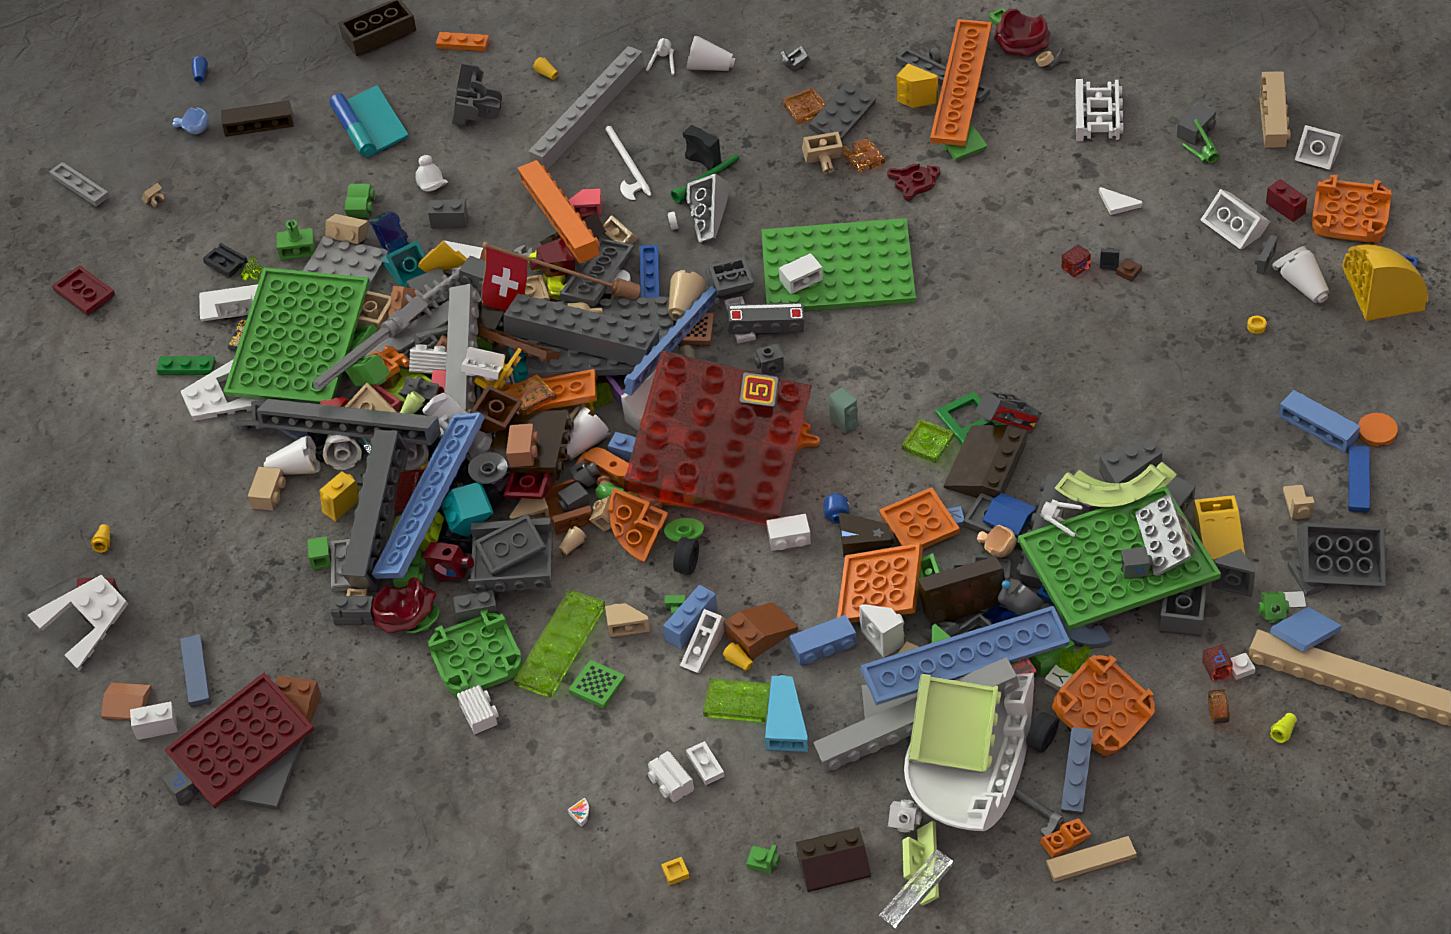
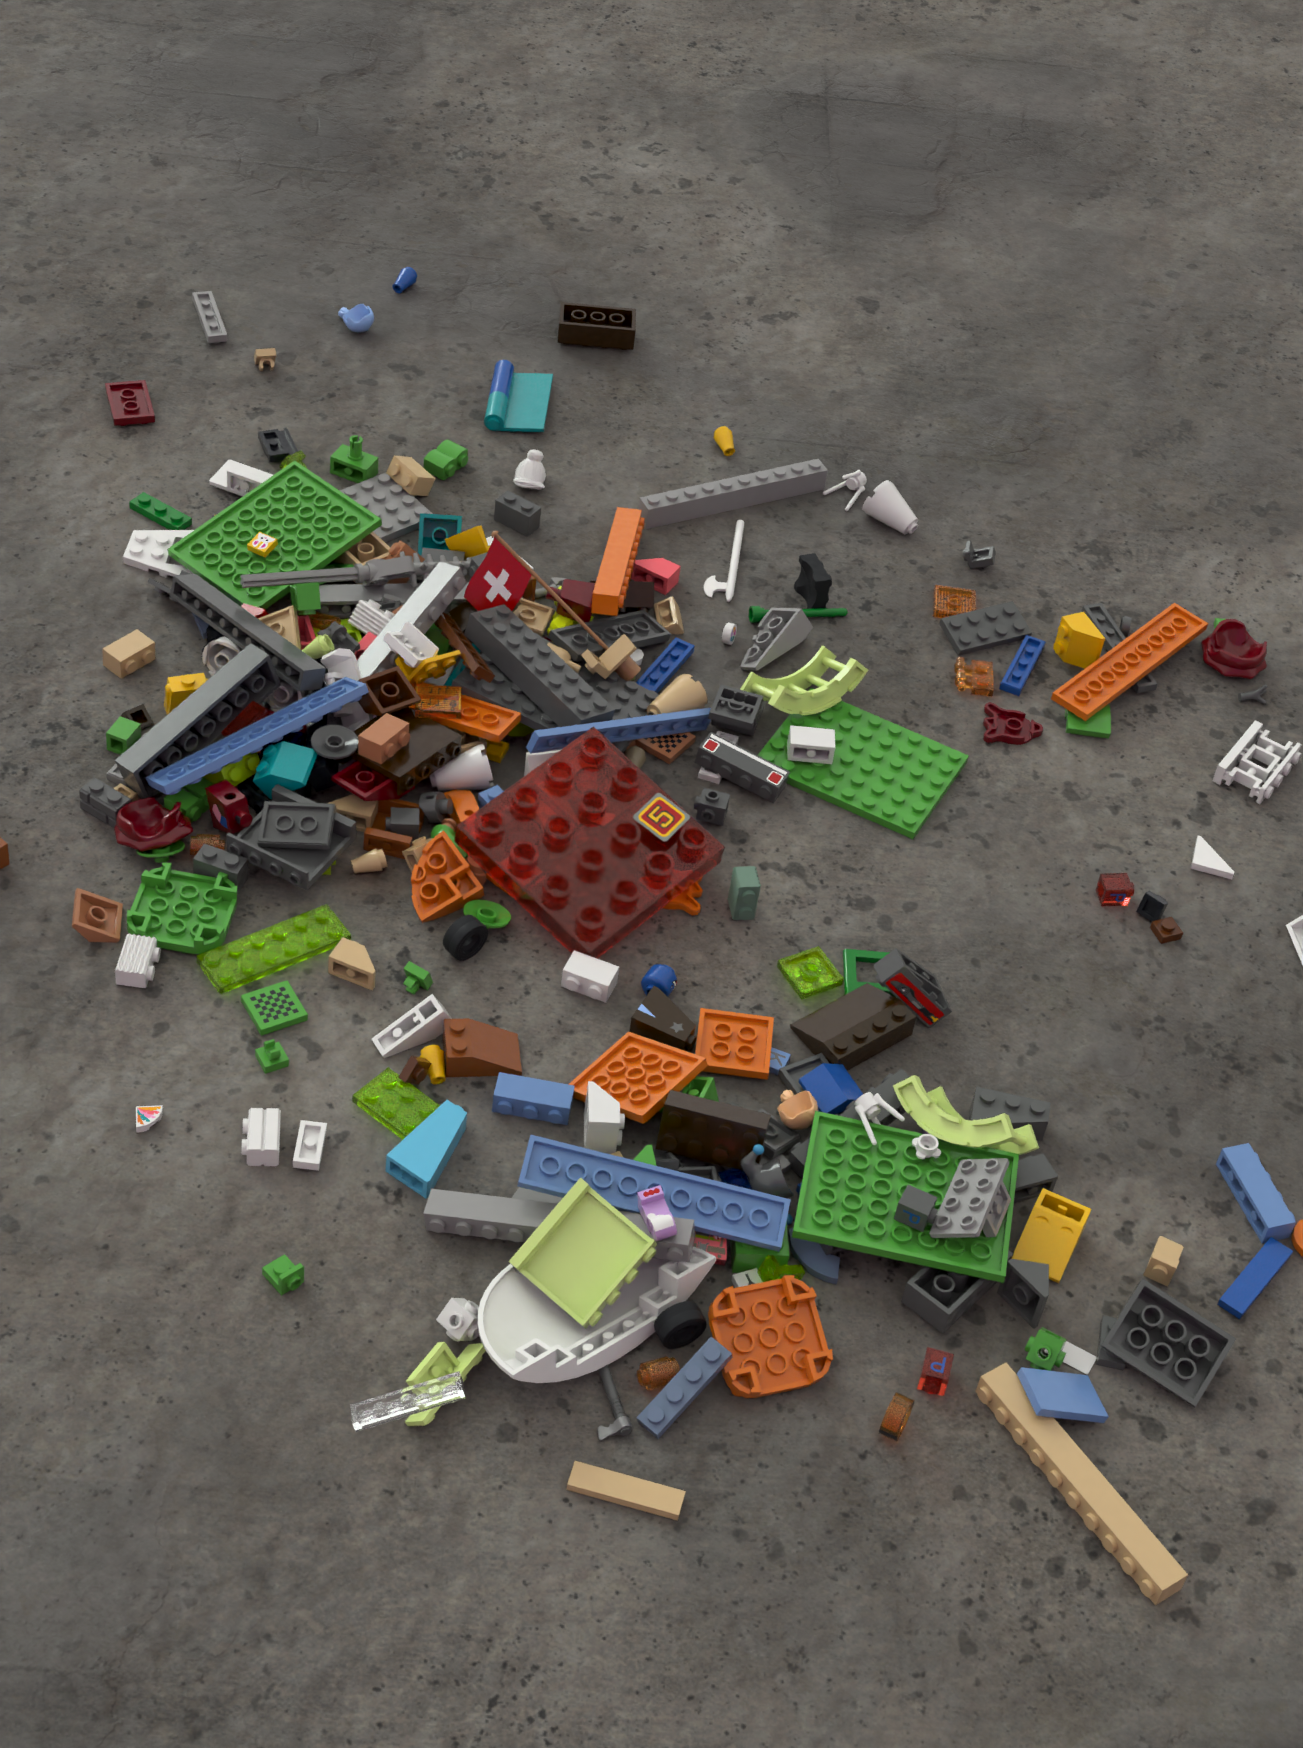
camera: 20 degrees right, 5 degrees down
(257, 118) = (417, 345): dark brown brick -> none
(295, 347) = (262, 544): none -> yellow tile
(295, 458) = (180, 642): white cone -> none
(313, 531) = (140, 715): none -> dark brown slope
(389, 231) = (445, 495): clear blue brick -> none
(392, 359) = (335, 602): orange plate -> none
(421, 695) = (96, 917): none -> nougat slope
(445, 599) = (197, 842): none -> clear orange brick
(462, 41) = (668, 380): orange plate -> none
(470, 84) = (620, 432): dark grey piece -> none
(603, 394) = (516, 746): clear neon green tile -> none
(618, 289) = (611, 658): none -> tan bracket
(626, 719) = (271, 1056): none -> bright green tile
(675, 871) = (187, 1231): yellow tile -> none
(683, 622) = (403, 996): medium blue brick -> none
(732, 669) = (415, 1070): none -> reddish brown plate
(770, 243) = (789, 691): none -> yellowish green fence
(822, 149) = (934, 648): tan brick -> none
(833, 859) = (352, 1318): dark brown slope -> none
(888, 127) = (1022, 665): none -> blue tile
(982, 668) = (656, 1213): none -> lavender leg
(1044, 59) = (1240, 687): tan tile -> none
(1051, 771) = (657, 1372): none -> clear orange brick
(1066, 838) = (620, 1452): orange slope -> none
(1108, 516) = (926, 1146): none -> white plate
(1242, 666) = (960, 1392): white plate -> none
(1256, 324) = (1265, 1059): yellow tile -> none
(1283, 728) = (953, 1485): neon yellow cone -> none

